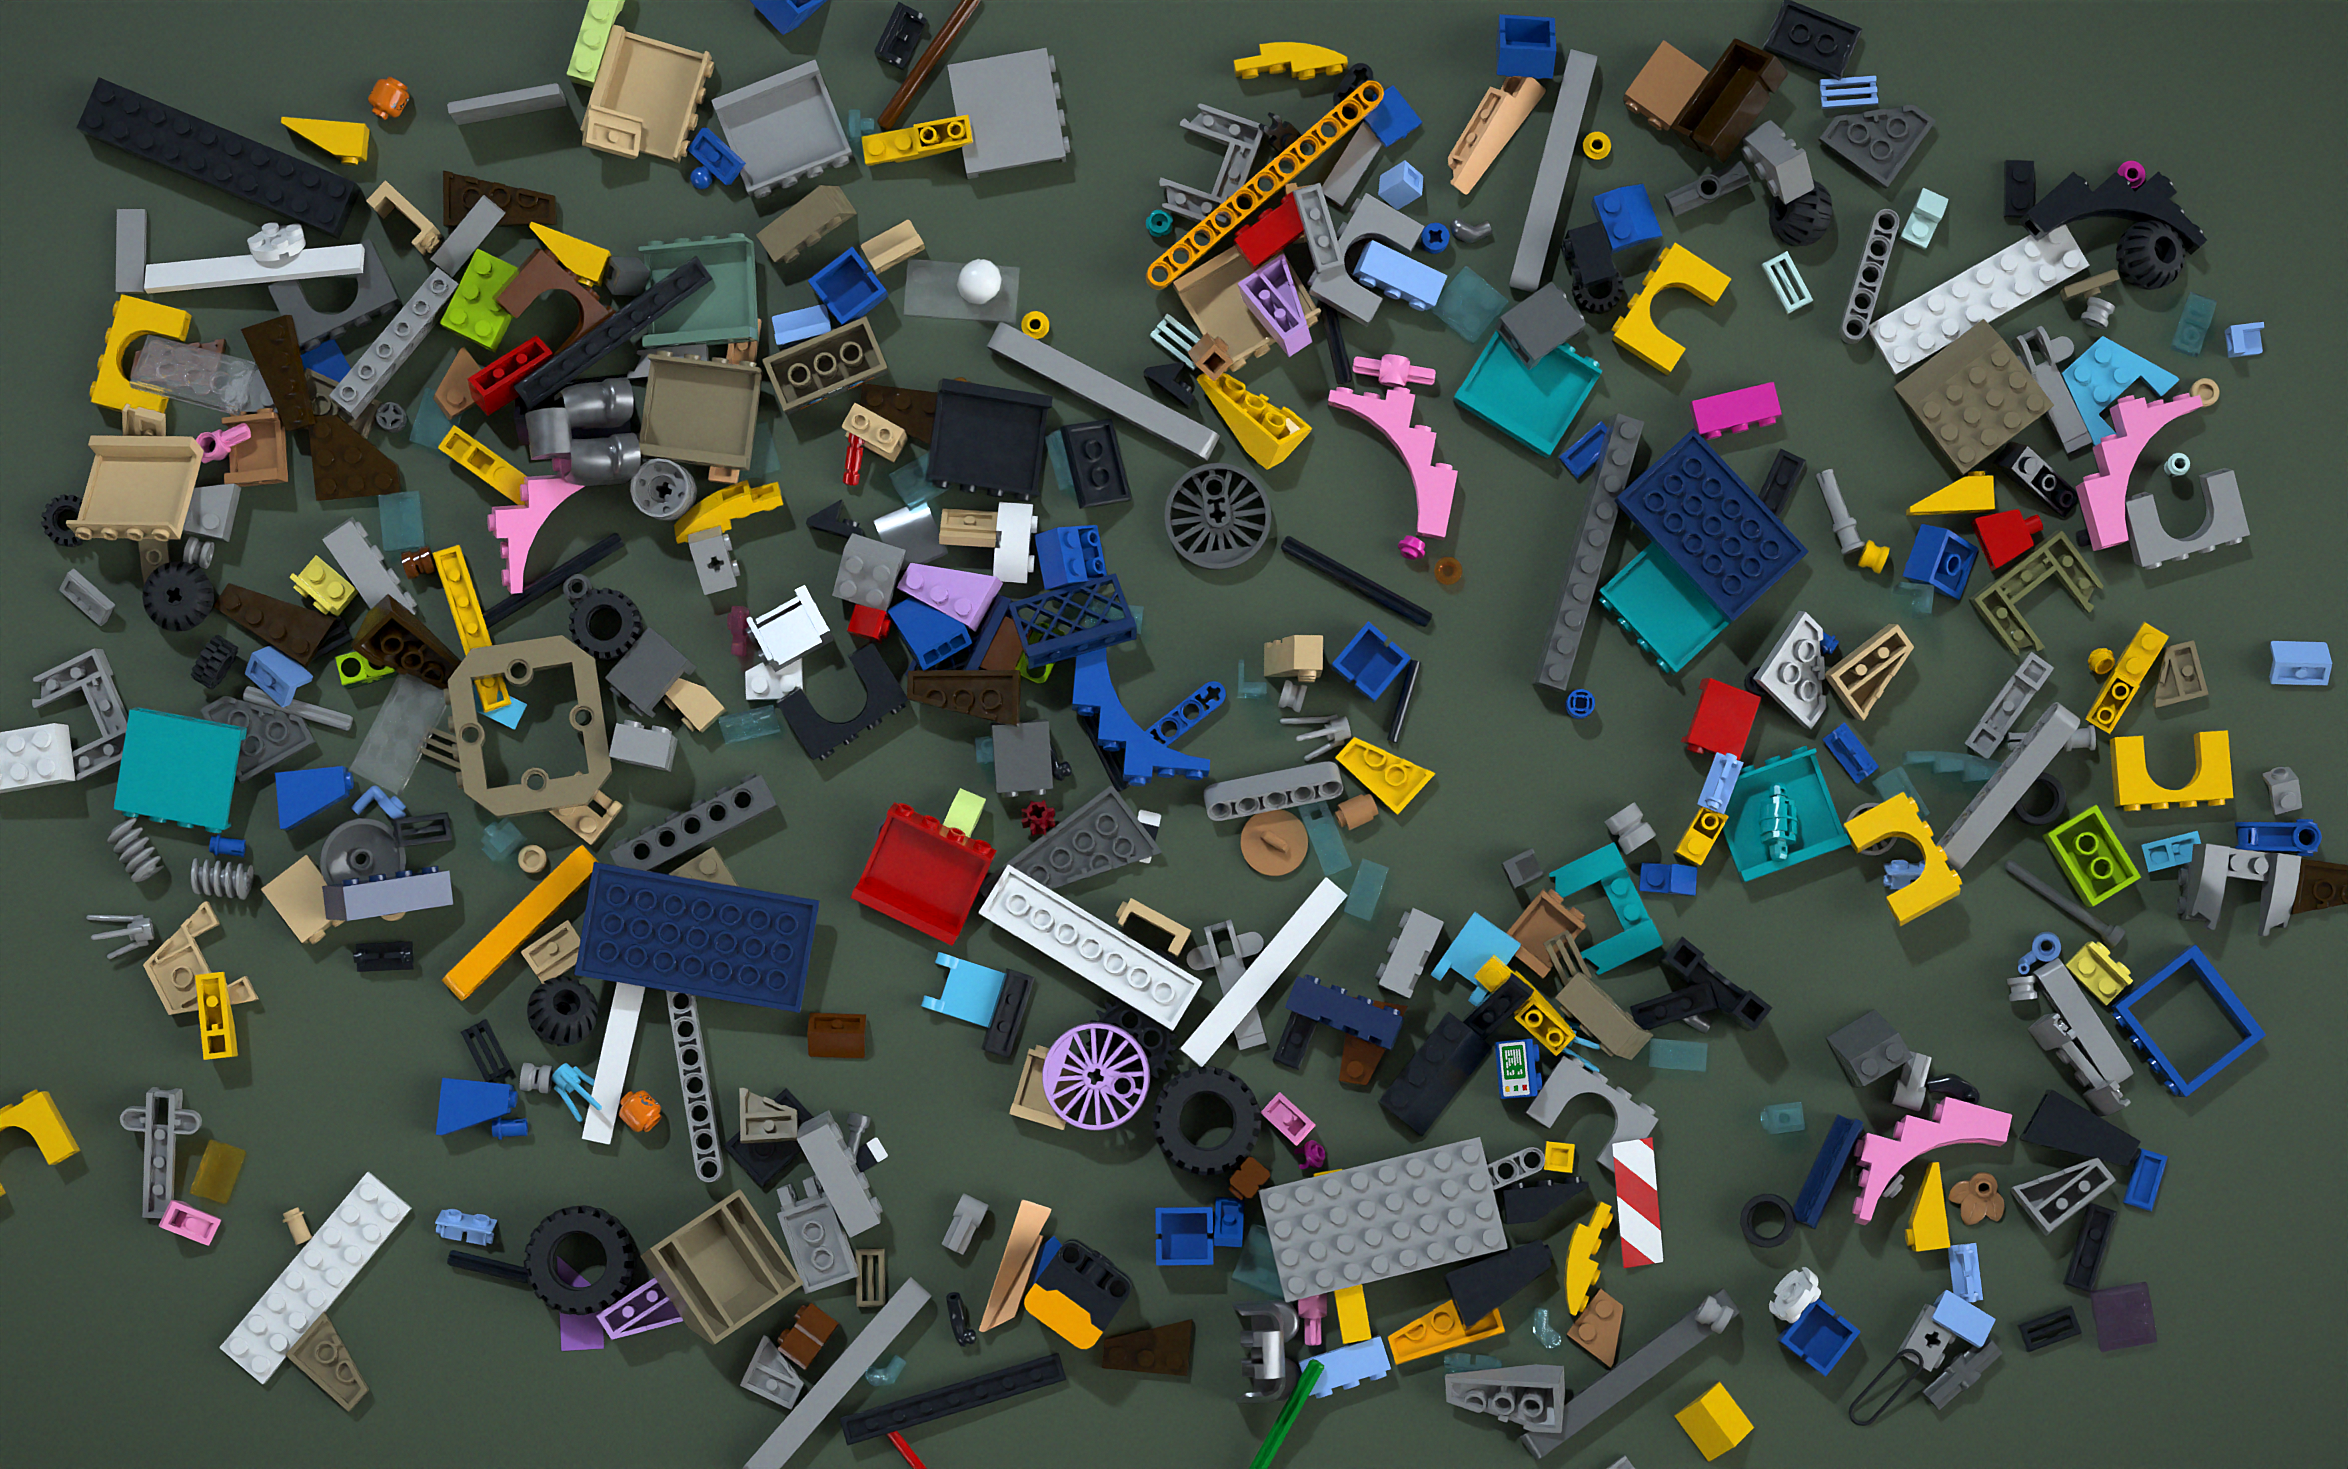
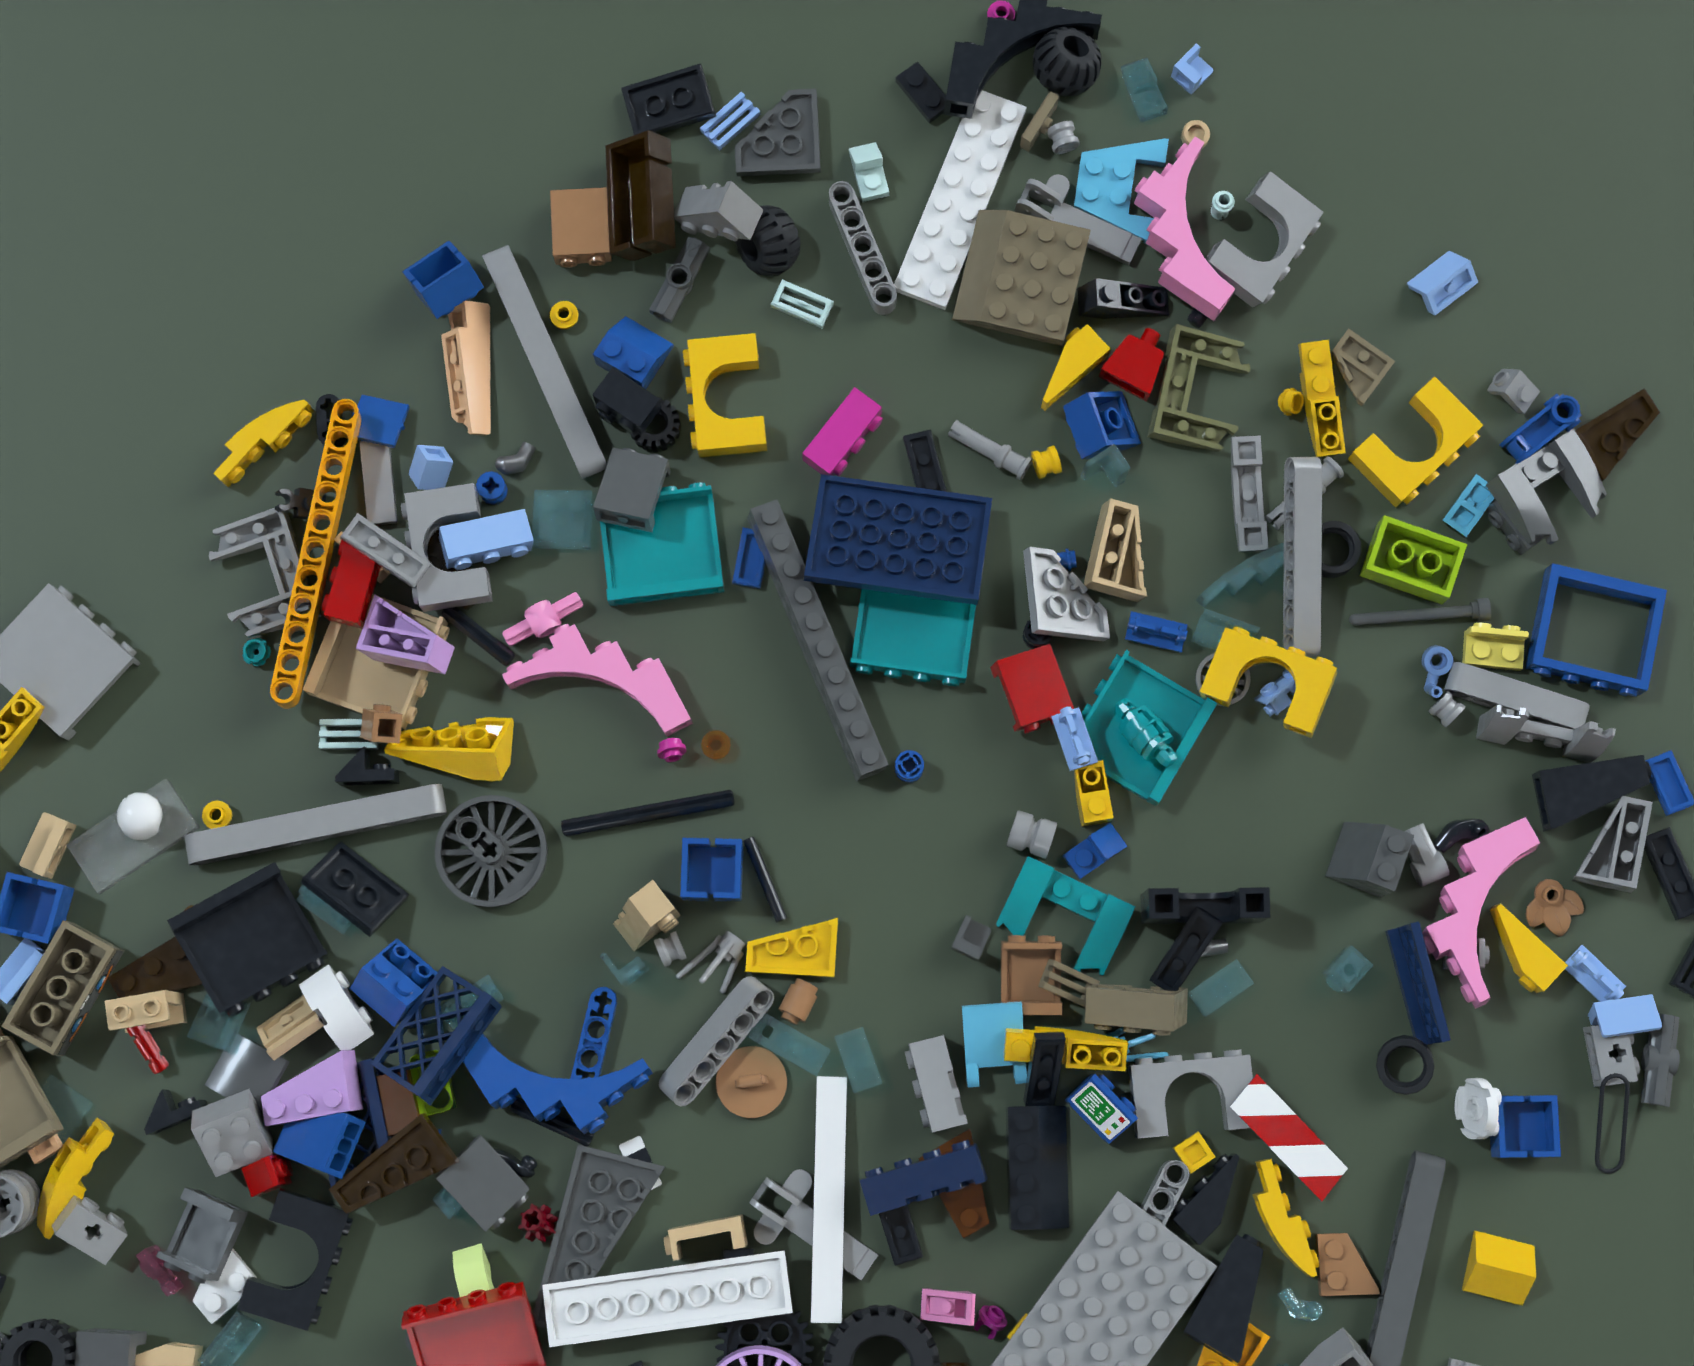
camera: 40 degrees left, 5 degrees down
(1713, 1314) = (1425, 1181): light grey wheel -> none

